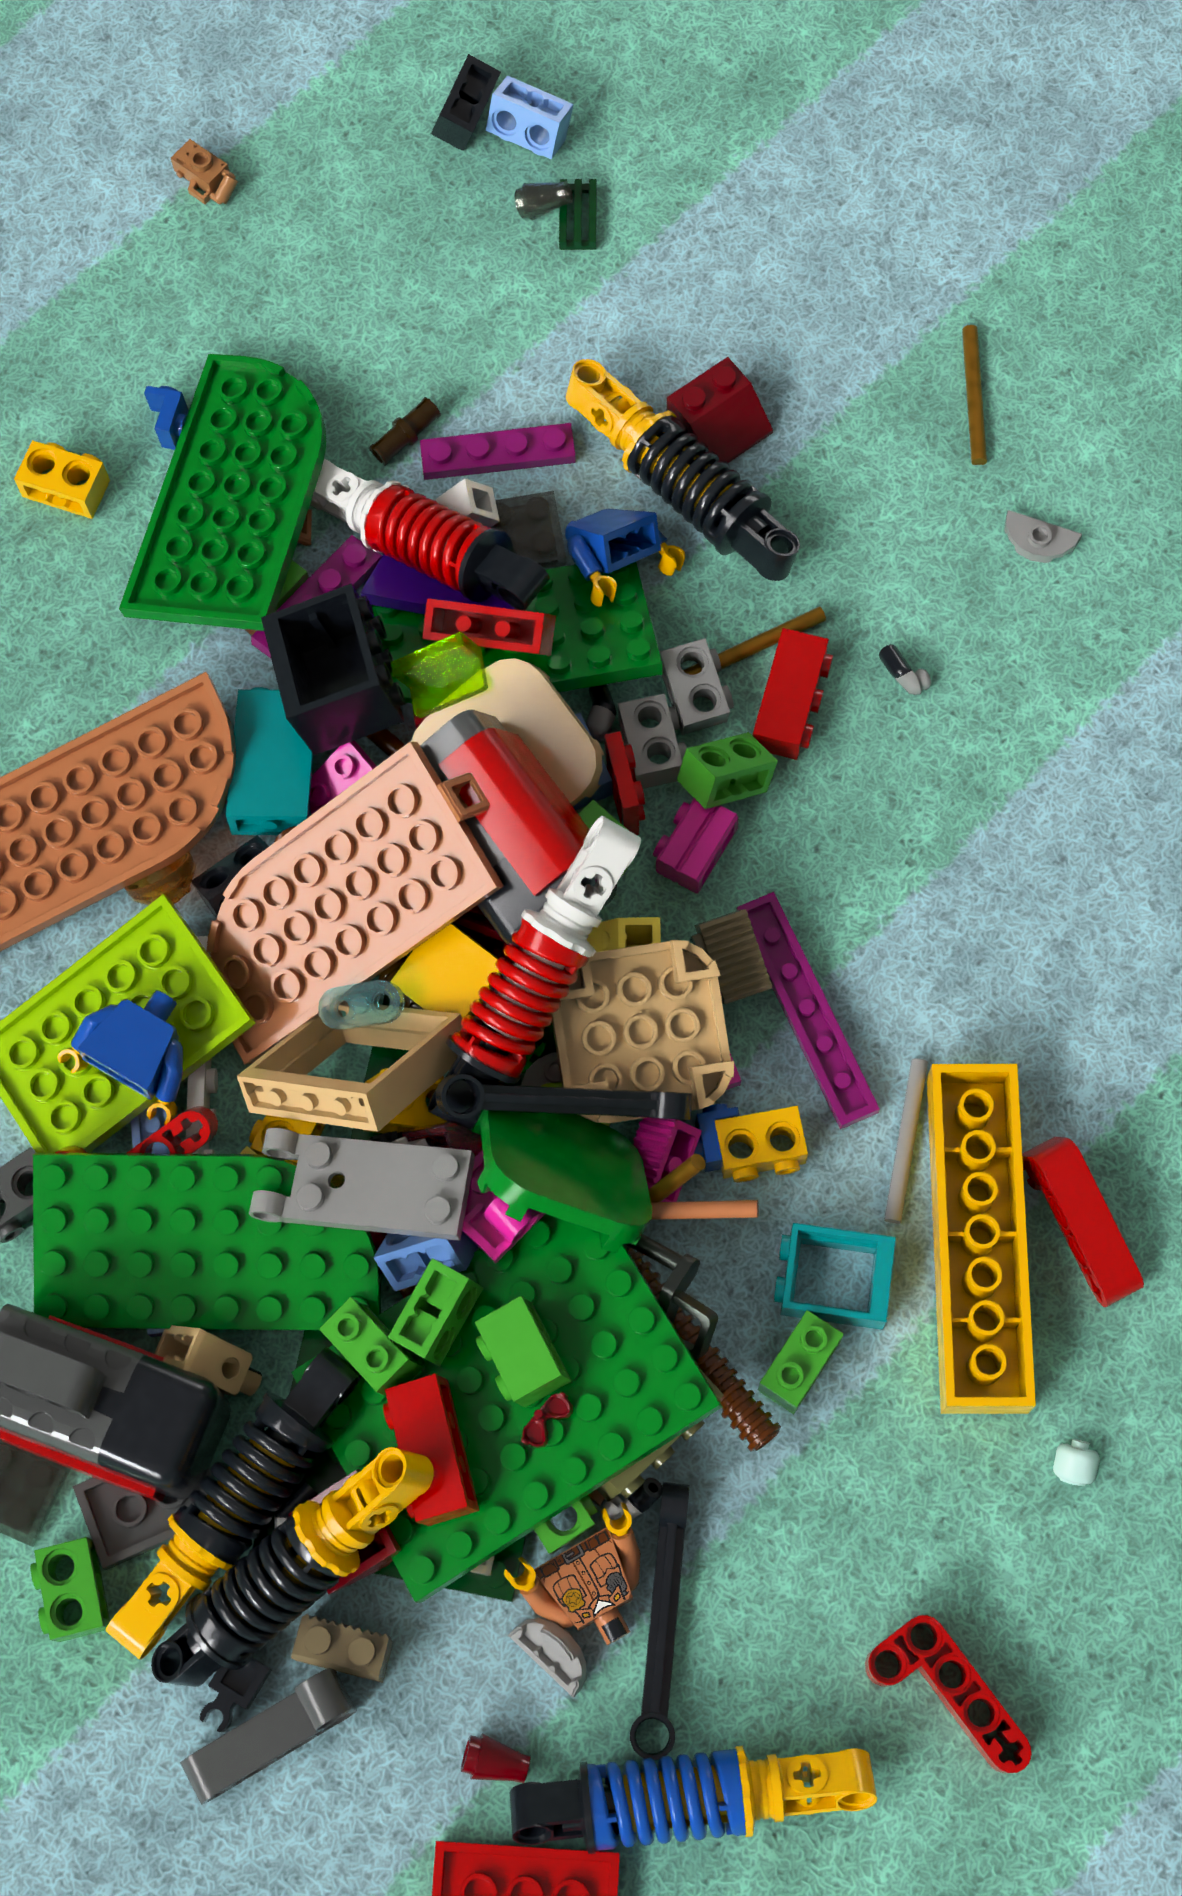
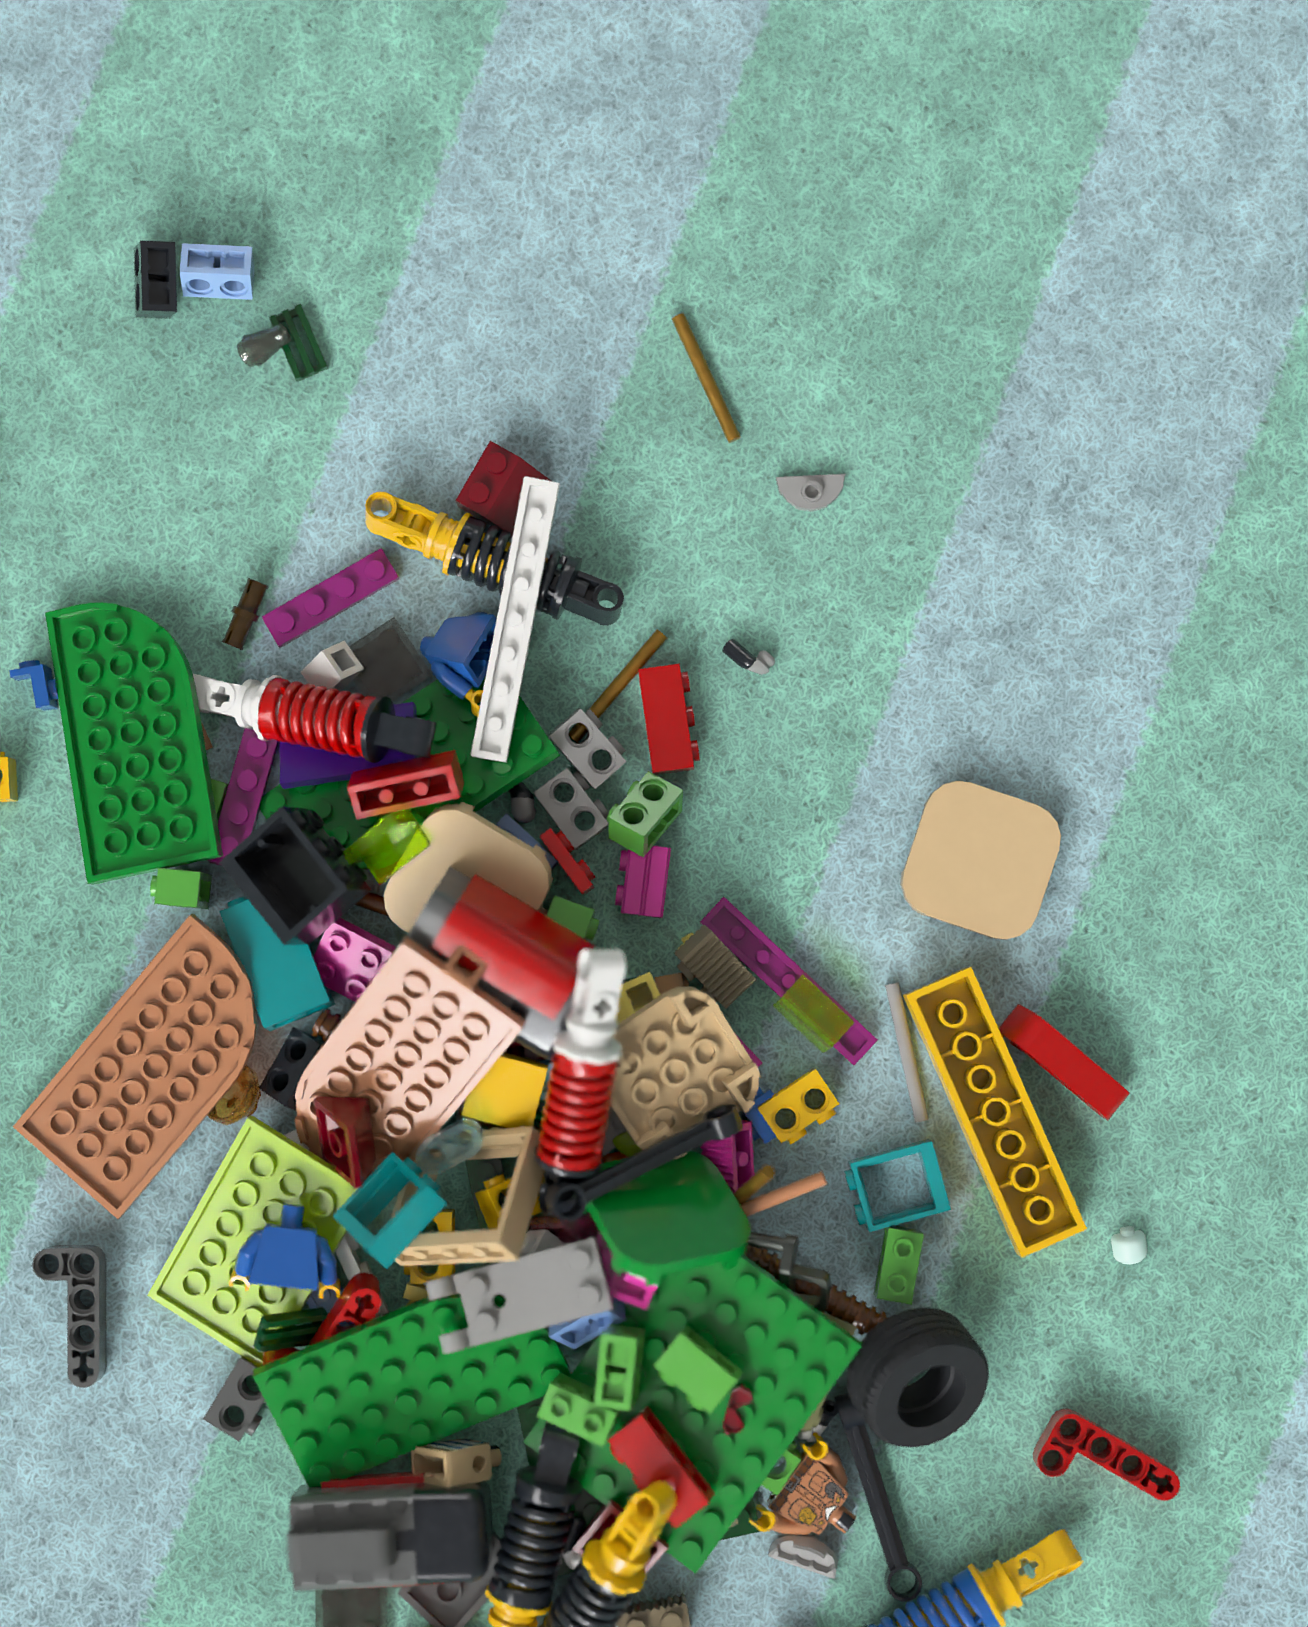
camera: 25 degrees left, 15 degrees up
(104, 1120) = (289, 1335): none -> dark green tile
(213, 649) = (181, 888): none -> bright green brick
(258, 952) = (346, 1136): none -> dark red slope
(267, 1037) = (376, 1194): none -> teal window
(675, 518) = (515, 619): none -> white plate
(779, 1535) = (938, 1400): none -> black tyre
(818, 1050) = (813, 1014): none -> clear neon green panel
(1072, 968) = (981, 860): none -> tan tile

